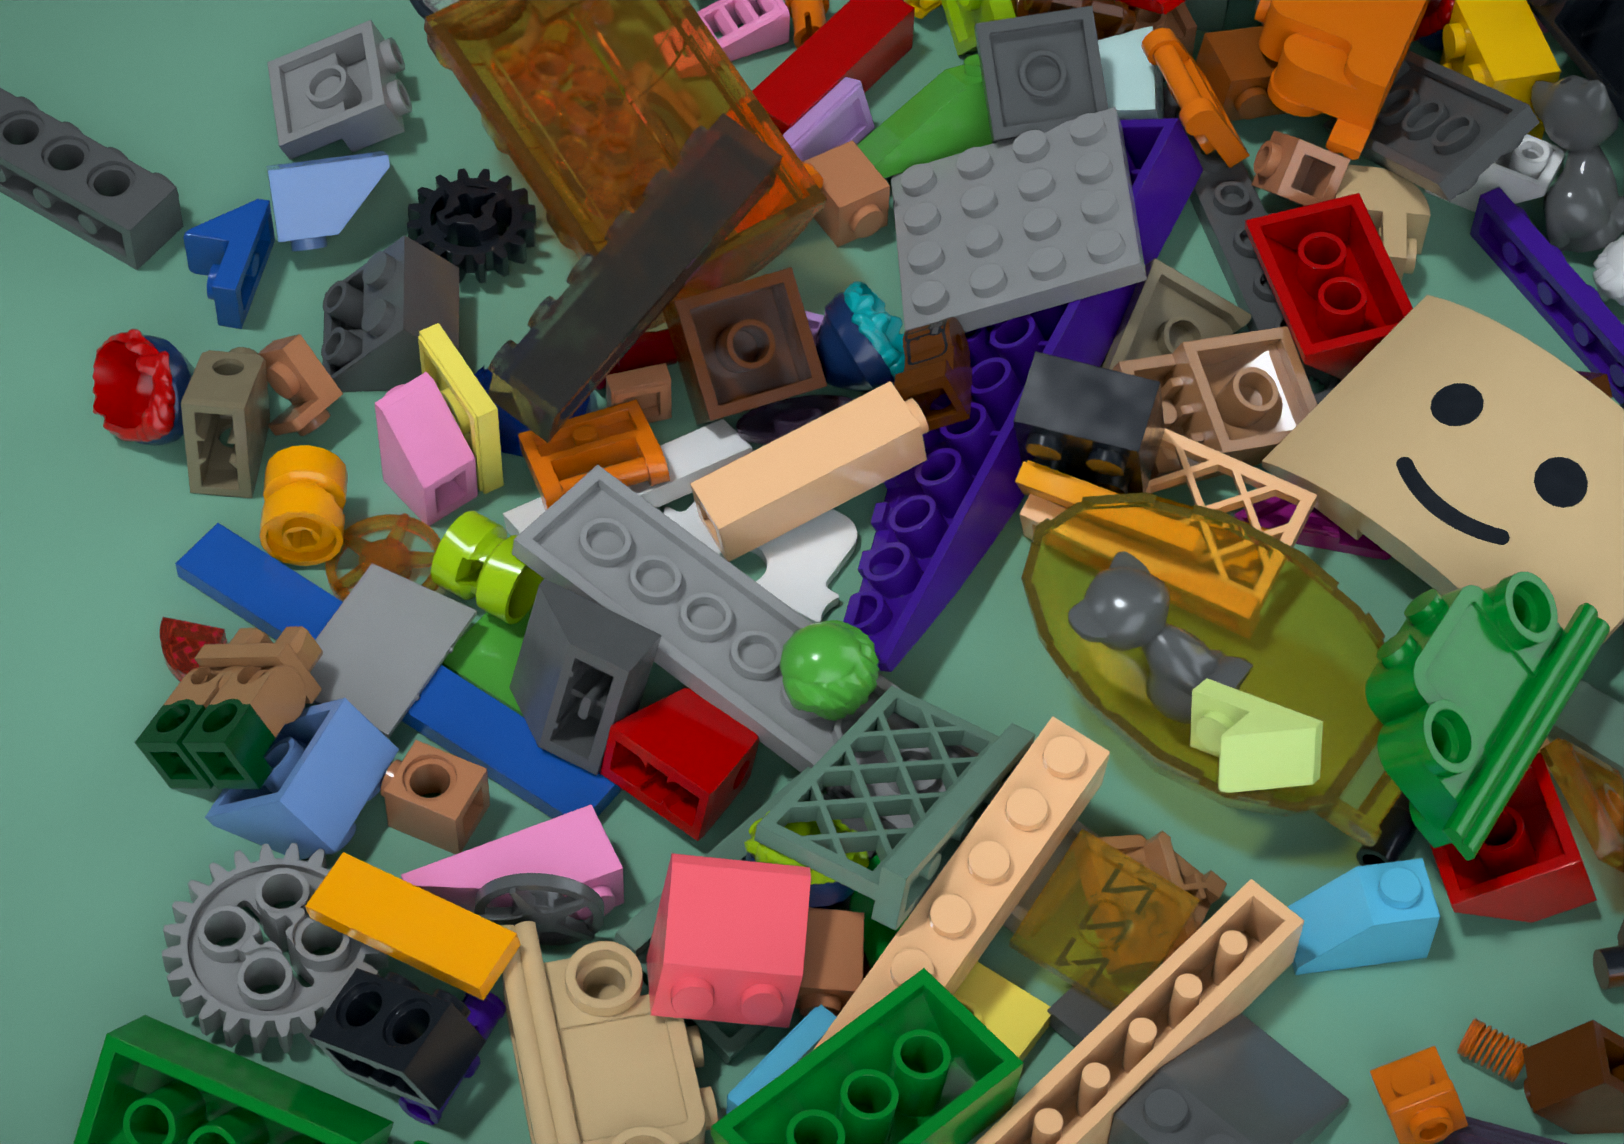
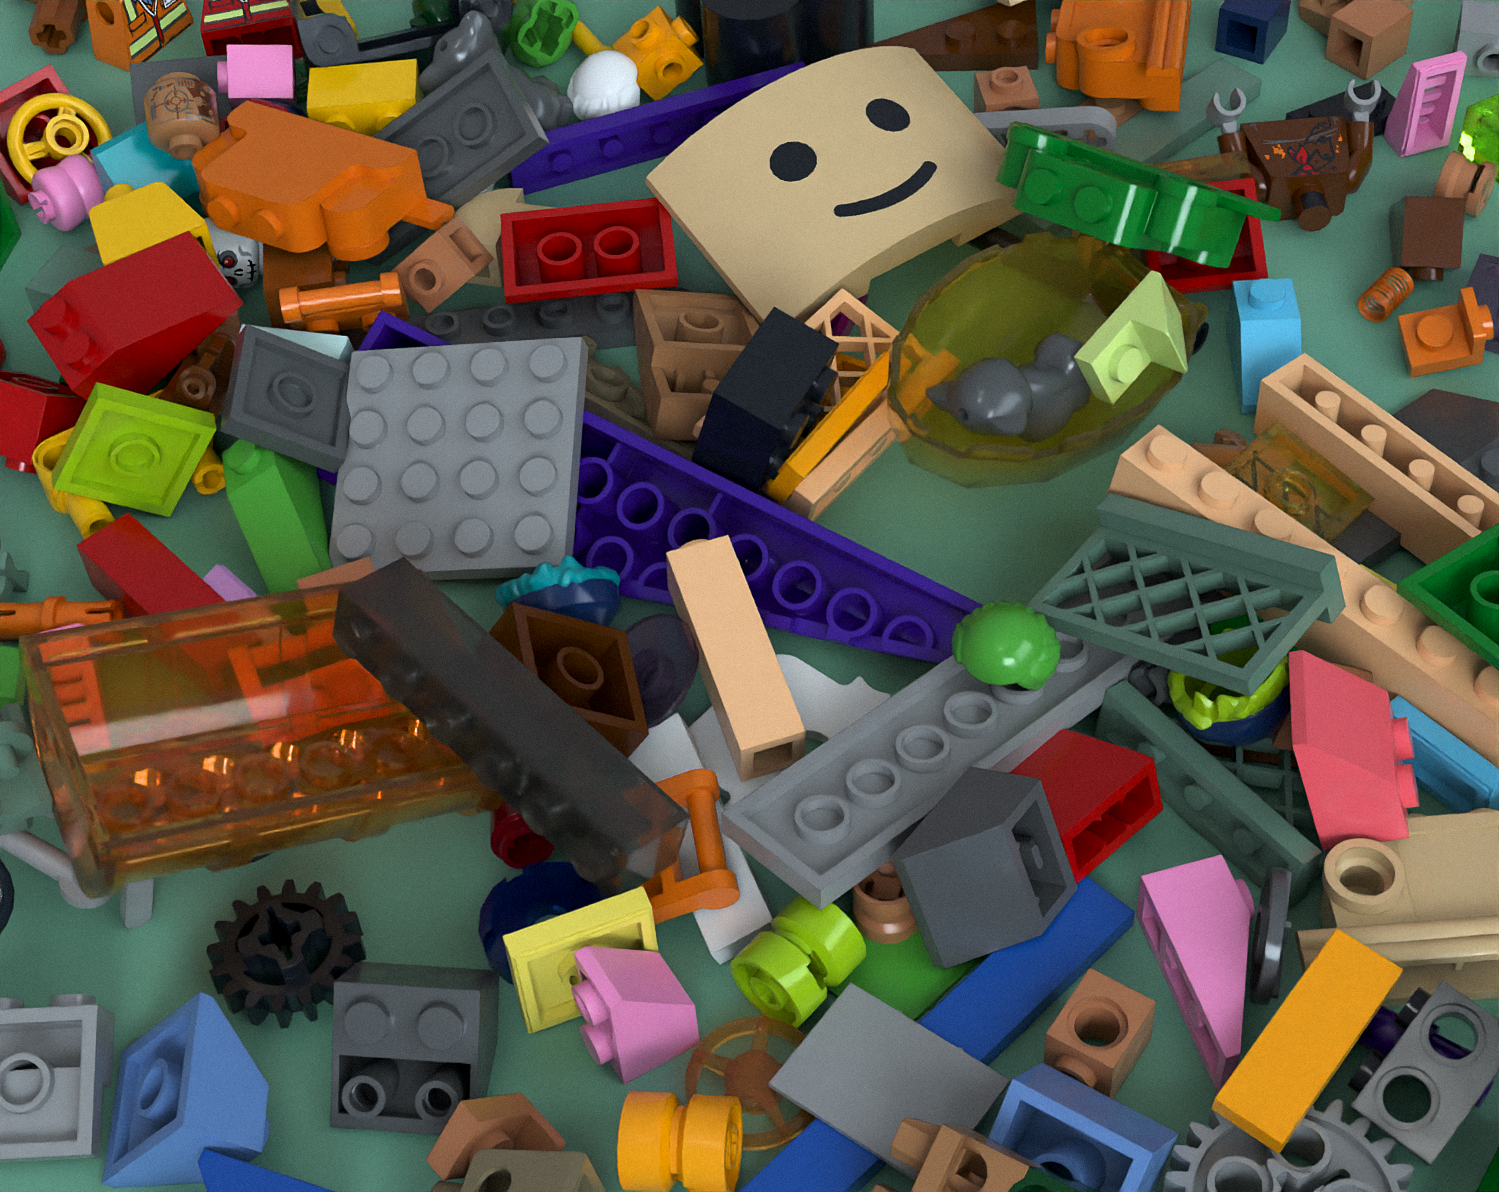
camera: 75 degrees left, 5 degrees down
(936, 365) = (628, 539): reddish brown leg -> none

